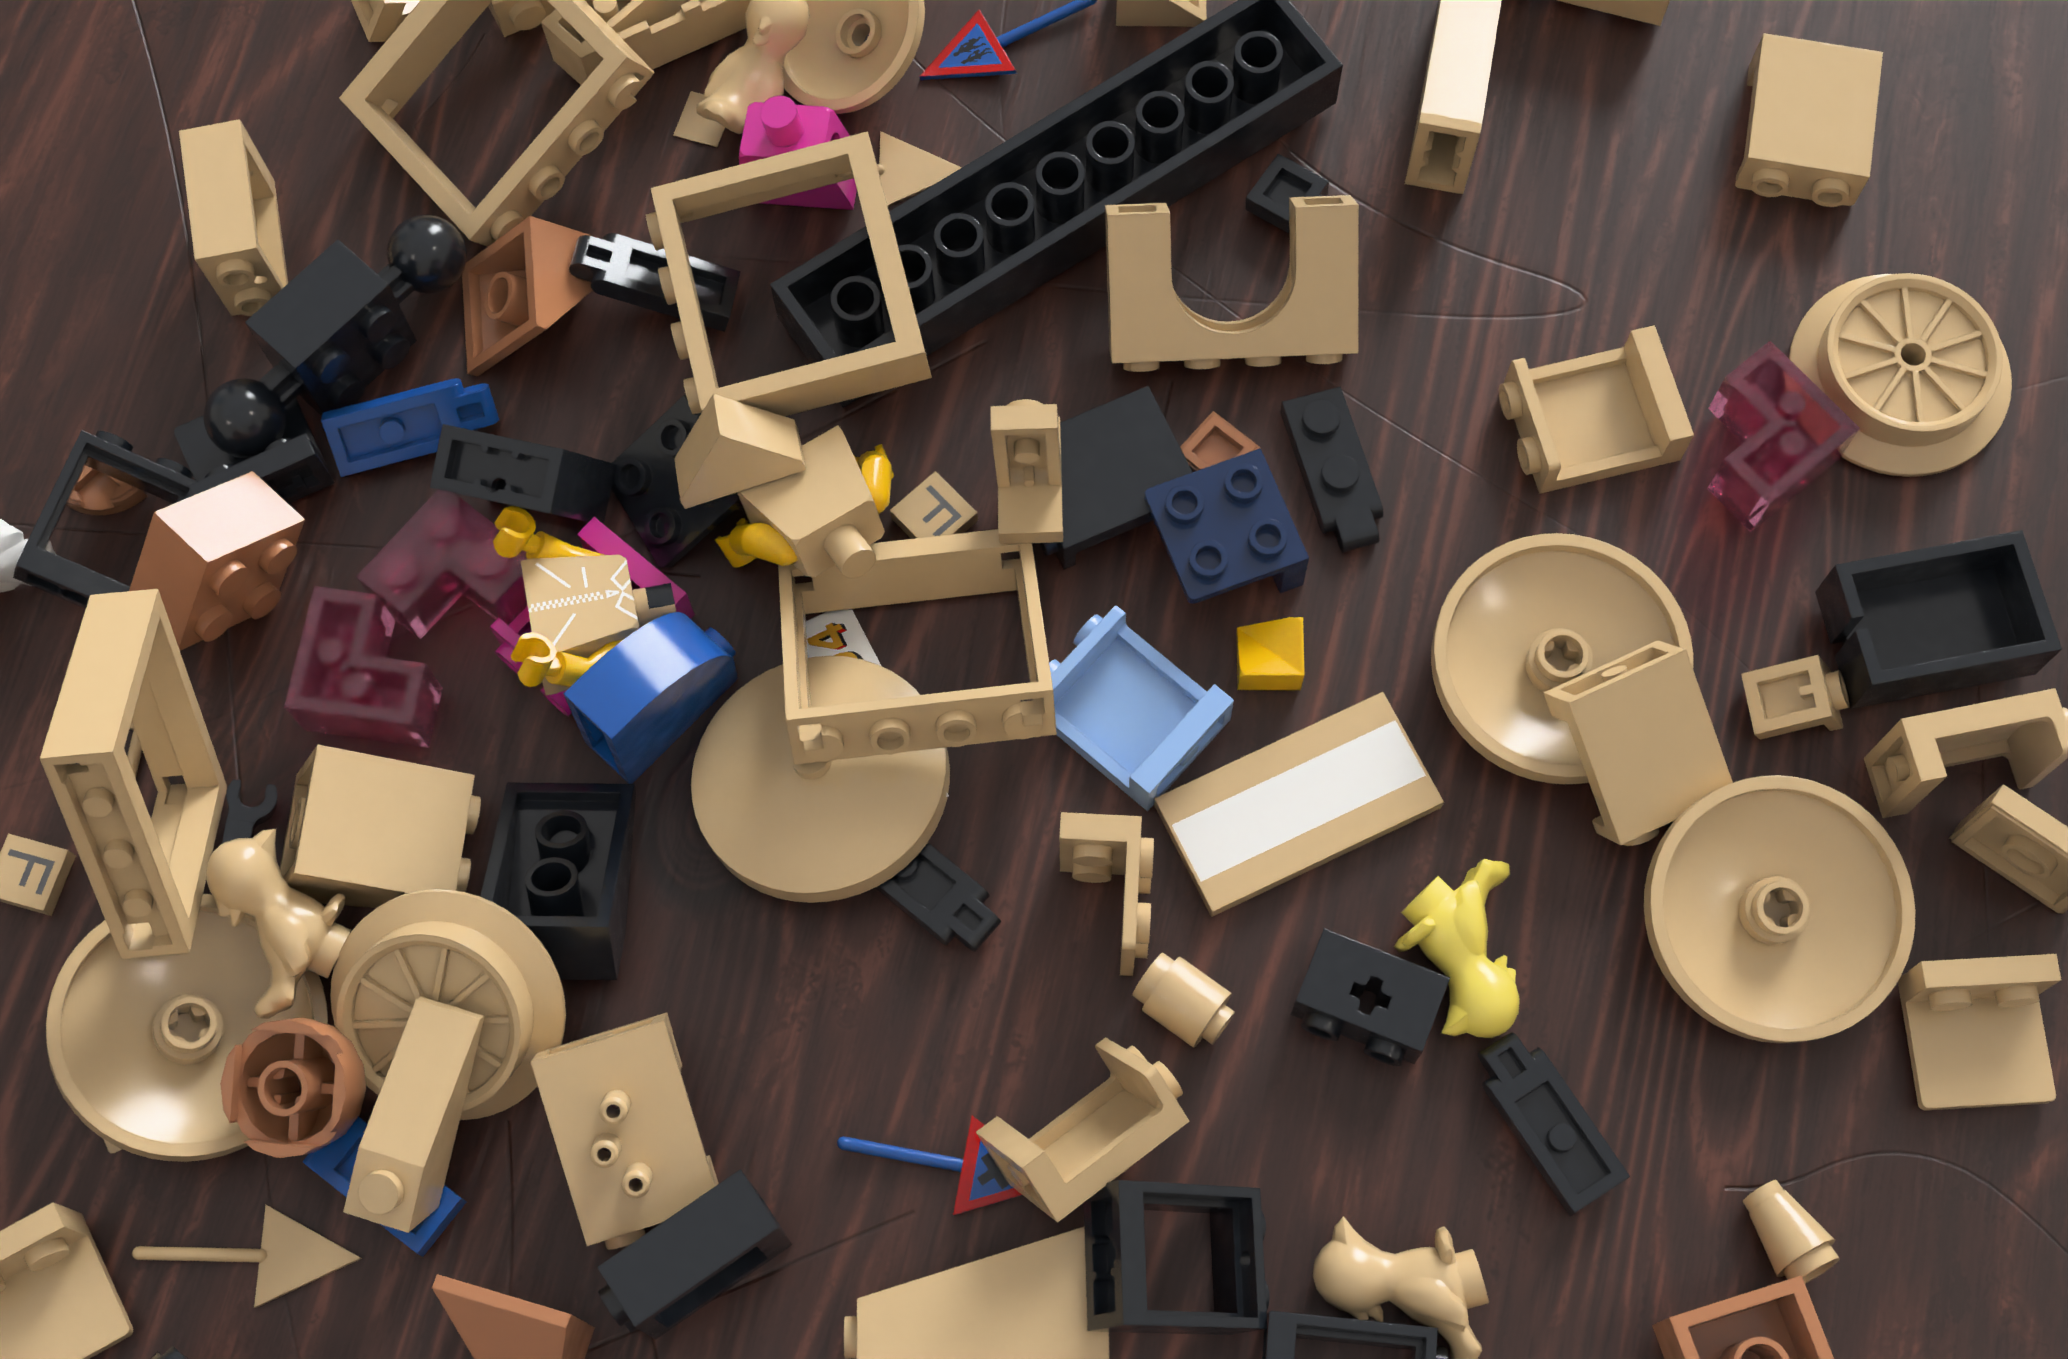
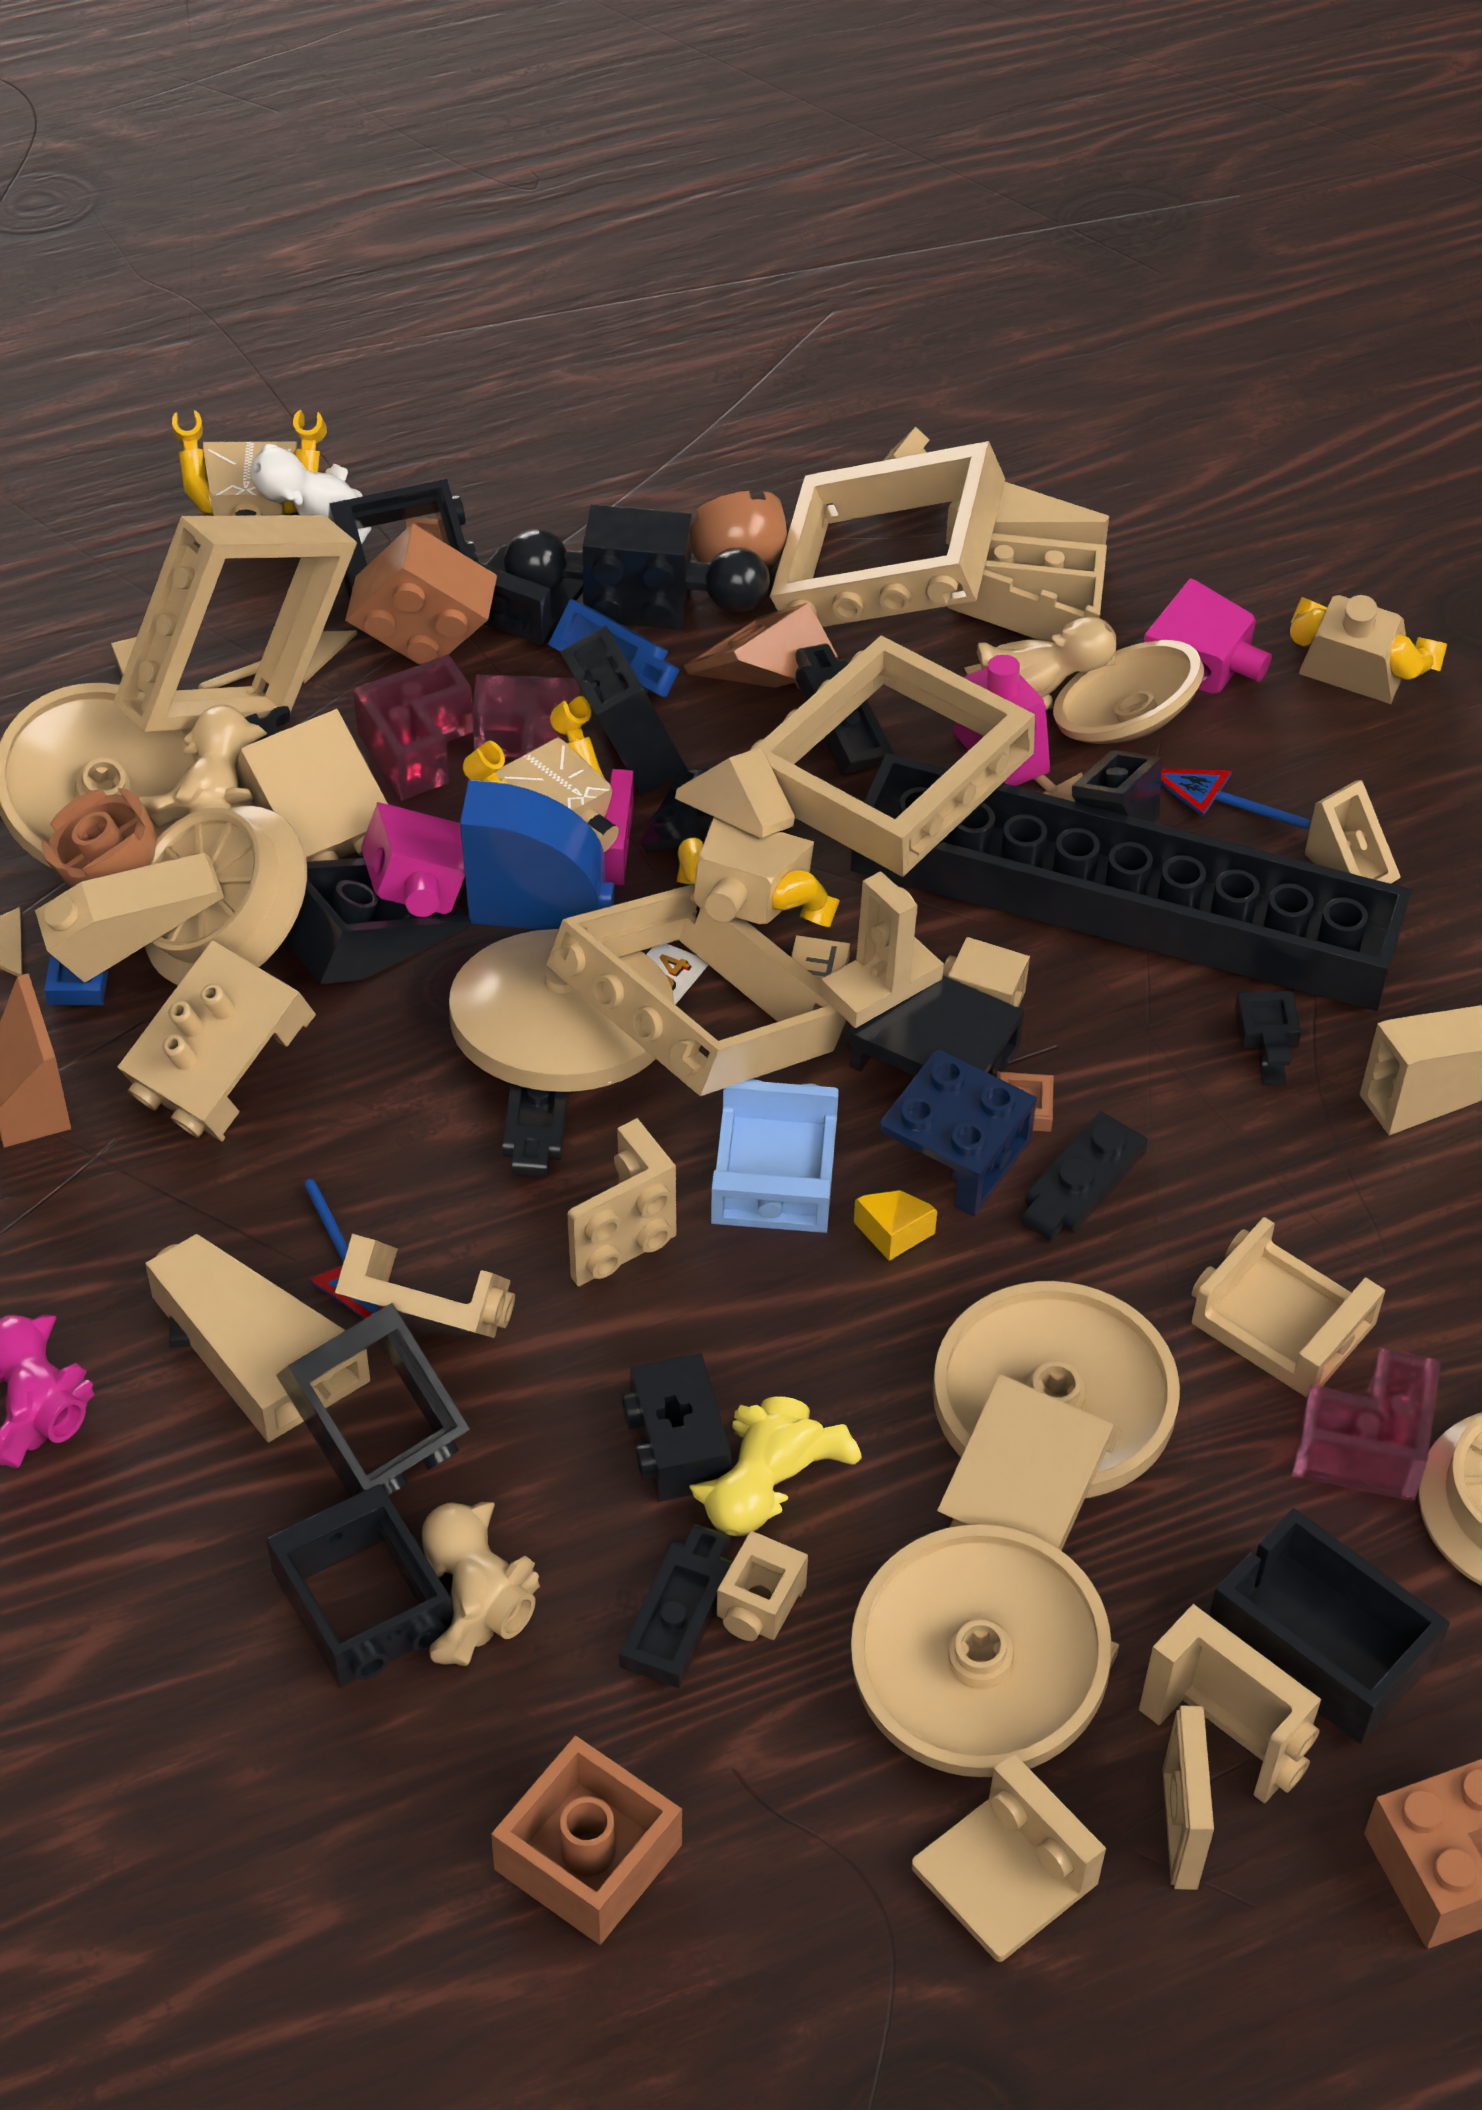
camera: 50 degrees right, 20 degrees down
(233, 216) = (680, 439): tan window -> none
(367, 207) = (740, 522): none -> nougat cylinder
(549, 790) = (414, 859): none -> dark pink torso
(691, 1258) = (166, 1101): black window -> none
(960, 115) = (1123, 784): none -> black slope
(1075, 380) = (990, 970): none -> tan brick
(1184, 1000) = (579, 1313): tan brick -> none
(1297, 803) = (796, 1305): tile -> none
(1308, 317) = (1084, 987): tan arch -> none
(1592, 1022) = (761, 1587): none -> tan brick
(1790, 1234) = (722, 1824): tan cone -> none
(1795, 697) = (1174, 1571): tan bracket -> none

